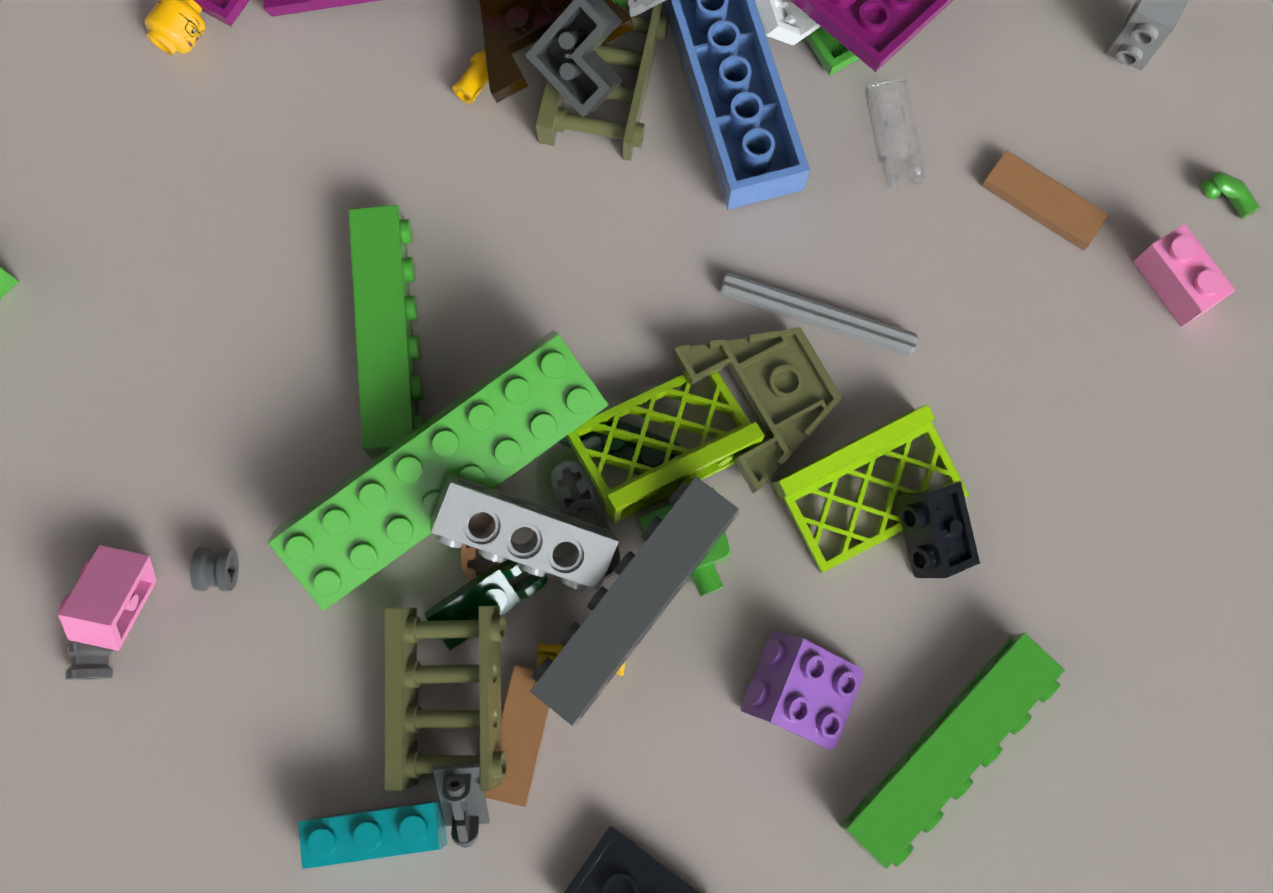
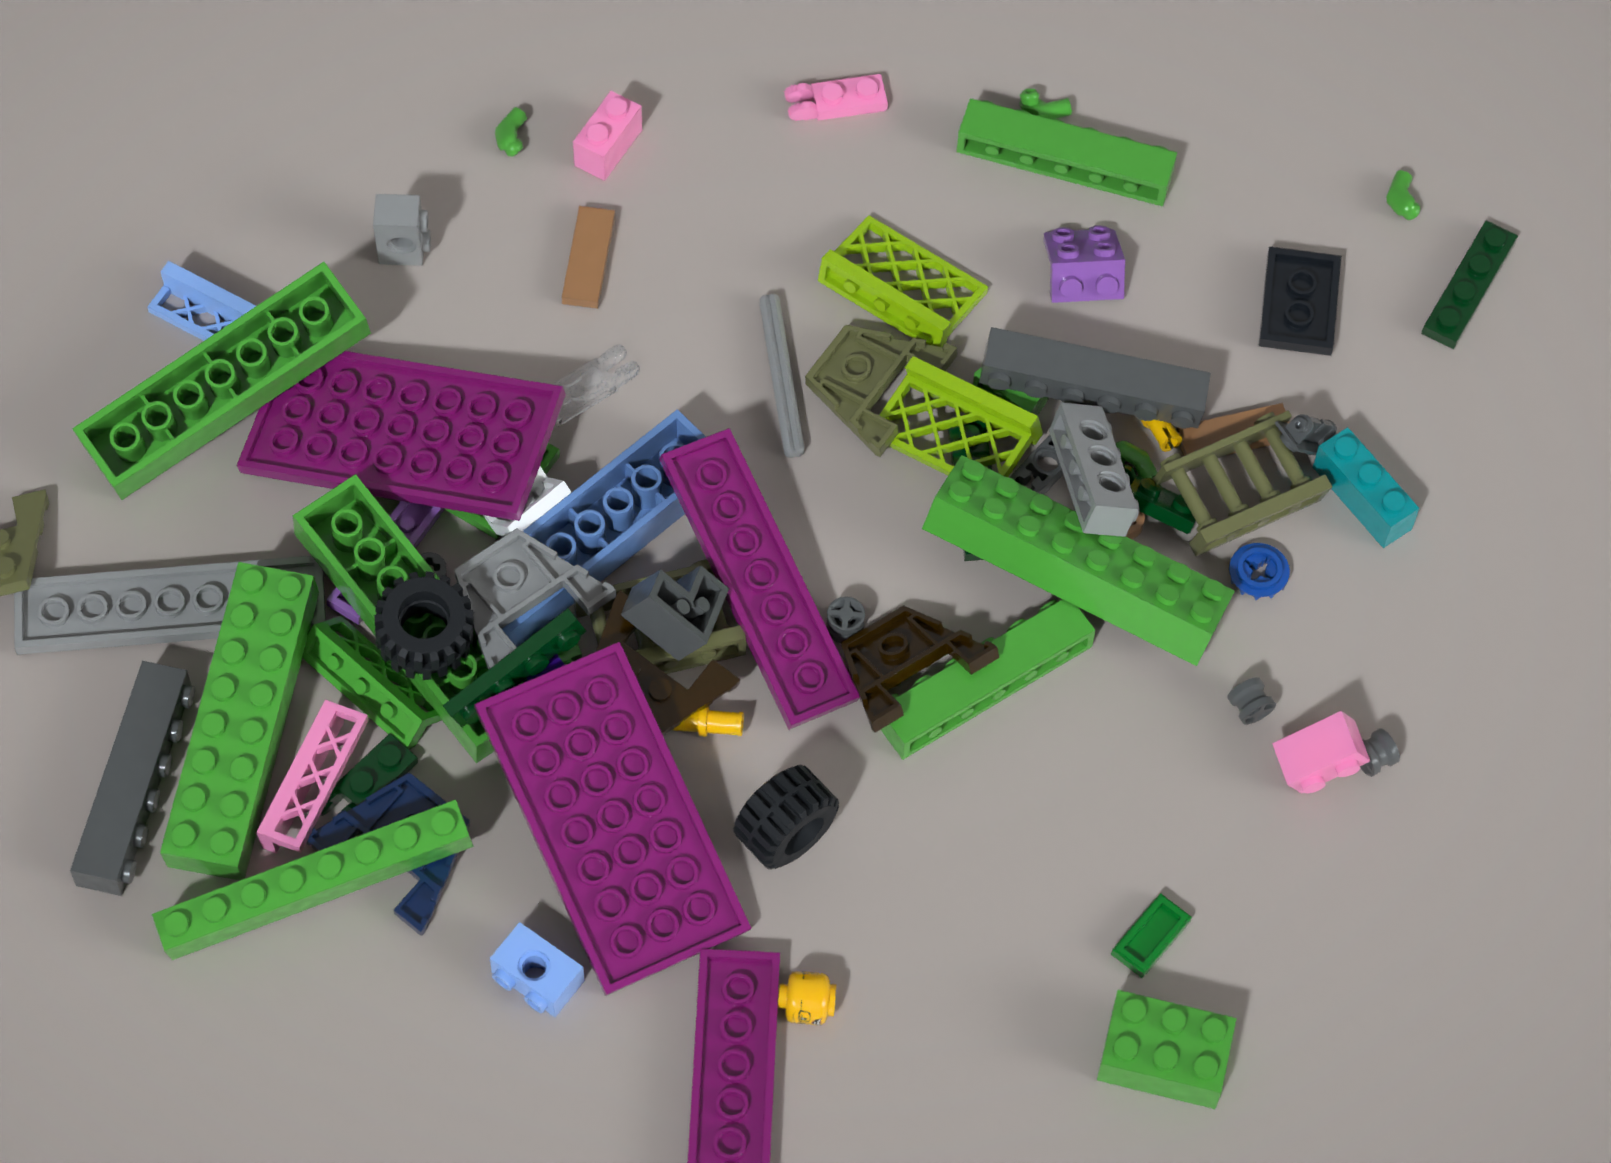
camera: 120 degrees left, 15 degrees down
(55, 347) = (1151, 935): none -> green tile
(331, 66) = (786, 817): none -> black tyre
(332, 658) = (1254, 556): none -> blue gear
(453, 255) = (899, 648): none -> dark brown wing
(516, 227) = (845, 611): none -> dark grey wheel
(545, 613) = (1138, 458): none -> bright green arm
(593, 161) = (761, 578): none -> magenta plate
(938, 531) = (913, 220): black bracket -> none
(1025, 755) = (1056, 109): none -> bright green arm
(1135, 542) = (837, 98): none -> bright pink hinge

